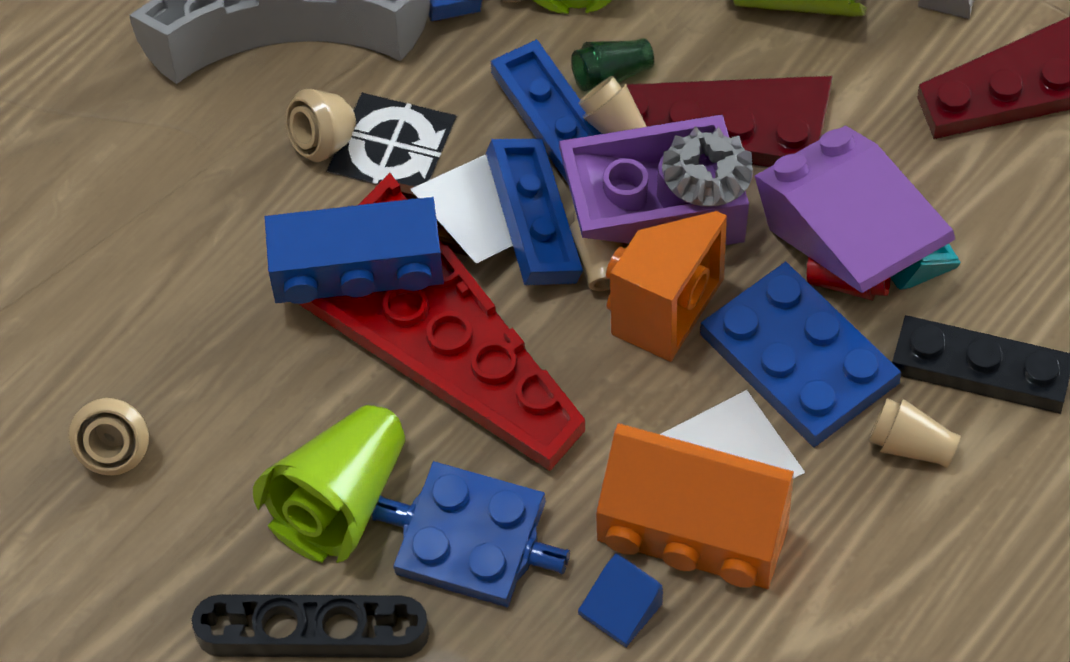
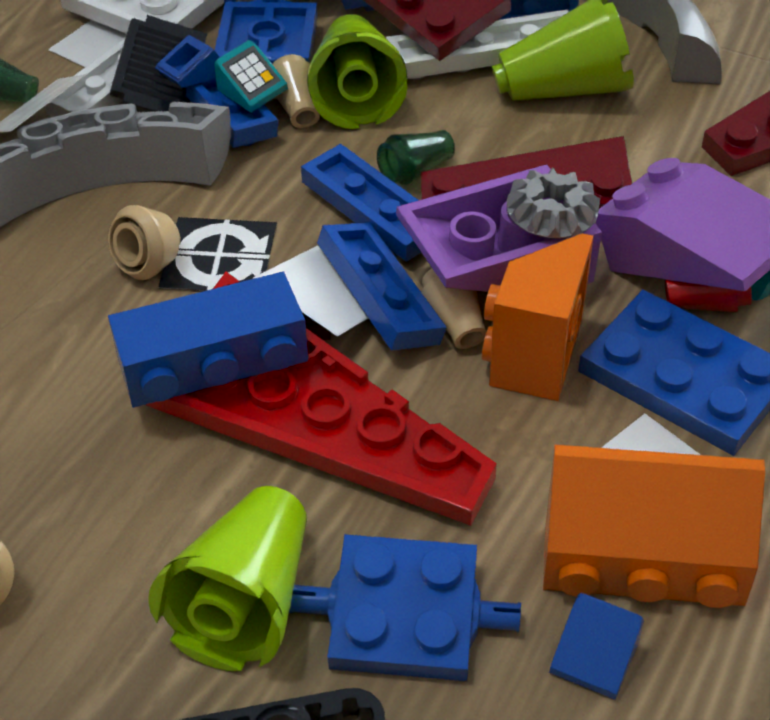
camera: 15 degrees left, 10 degrees down
(611, 107) = (431, 177): tan cone -> none

